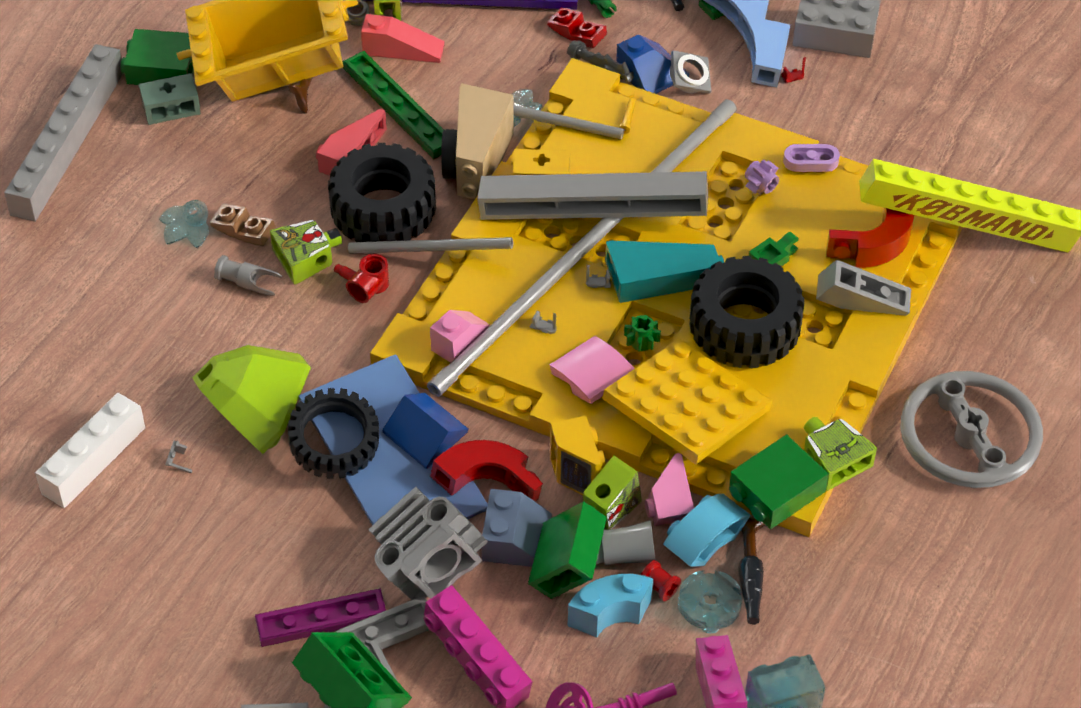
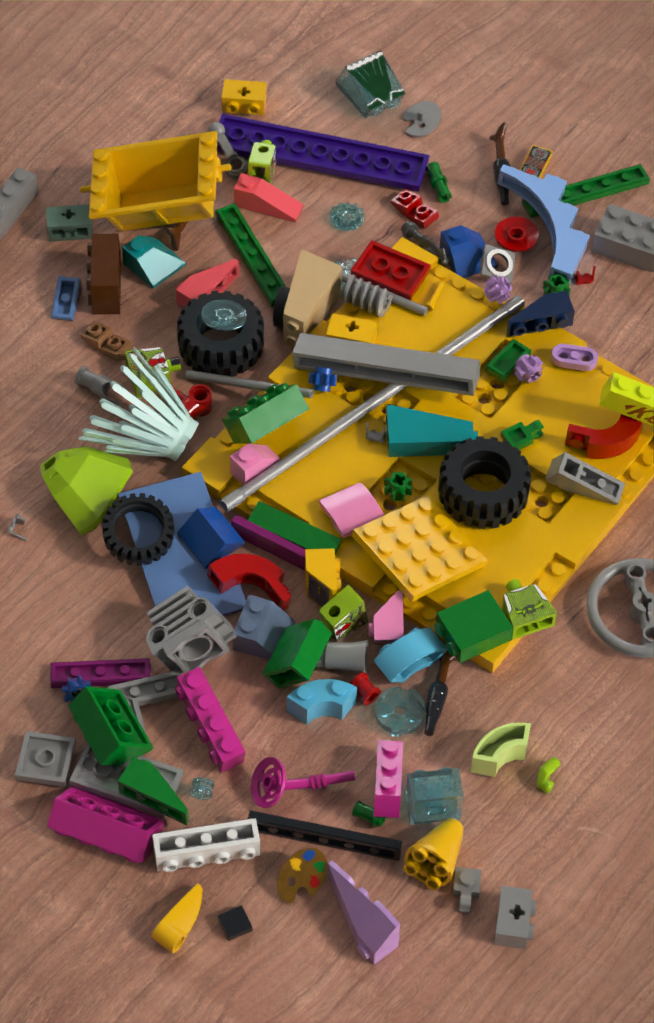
camera: 10 degrees right, 5 degrees up
(154, 56) = (62, 183): green brick -> none
(183, 181) = (66, 298): none -> medium blue slope
(183, 224) = (59, 334): clear light blue plate -> none
(227, 147) = (105, 274): none -> reddish brown brick
(277, 127) = (151, 260): none -> teal slope
(290, 638) = (72, 686): none -> blue gear
(340, 302) = (159, 434): none -> light aqua plant
(385, 167) = (224, 315): none -> clear light blue dish
(461, 272) = (264, 413): none -> brick
(498, 53) = (344, 222): none -> clear light blue gear
(501, 425) = (269, 542): none -> magenta tile
(519, 224) = (322, 379): none -> blue gear
(522, 403) = (293, 528): none -> green tile
(542, 325) = (323, 466): light grey piece -> none
(548, 126) = (366, 297): none -> light grey piece
(569, 93) = (391, 270): none -> red plate
(701, 96) = (497, 289): none -> lavender gear
(703, 37) = (516, 234): none -> red dish
(731, 174) = (503, 364): none -> green tile
(763, 115) = (546, 313): none -> dark blue slope
(765, 88) = (556, 284): none -> green gear
(849, 621) = (500, 747): none -> yellowish green brick
(910, 641) = (543, 782): none -> lime arm

